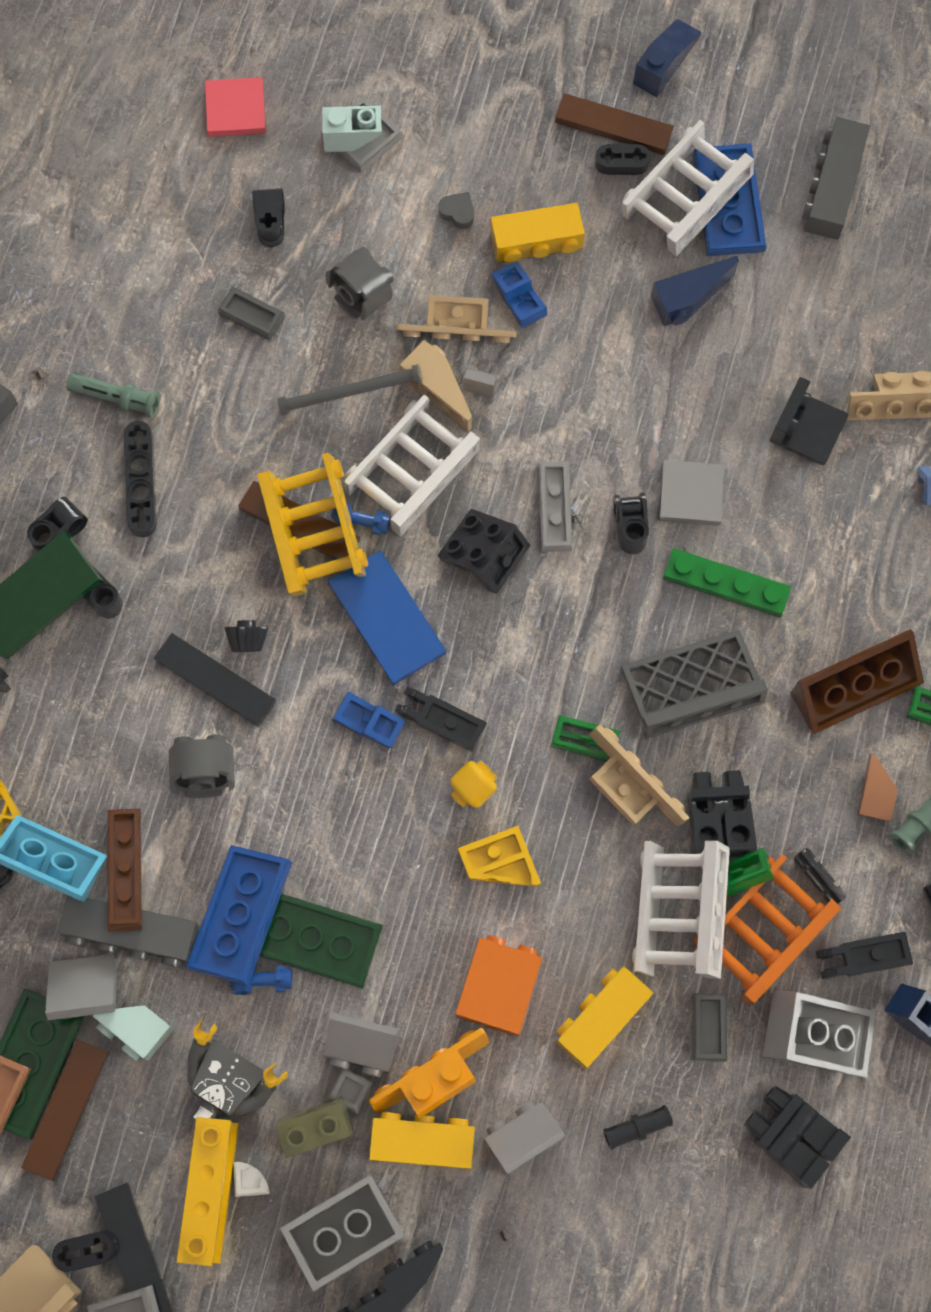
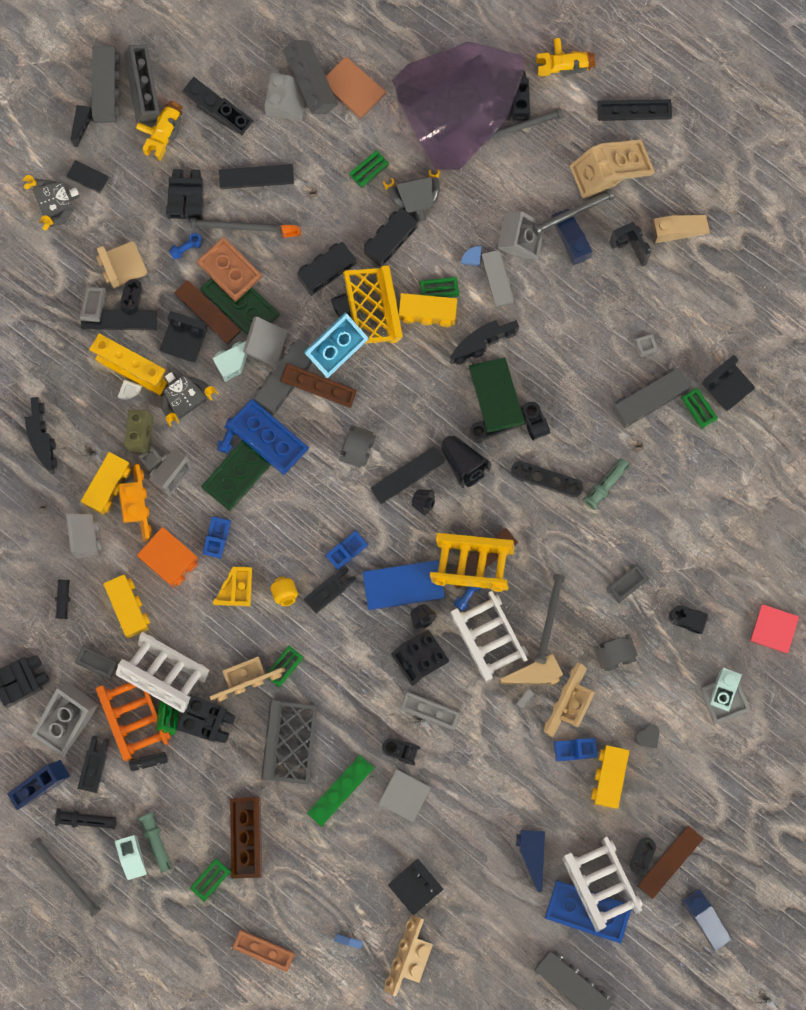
camera: 115 degrees right, 5 degrees up
(124, 1128) = (183, 337): none -> black bracket
(158, 602) = (464, 461): none -> black cone
(342, 1232) = (80, 424): light grey brick -> none
(423, 567) = (422, 616): none -> black piece
(432, 926) = (216, 537): none -> blue slope
(878, 791) = (180, 818): nougat slope -> none

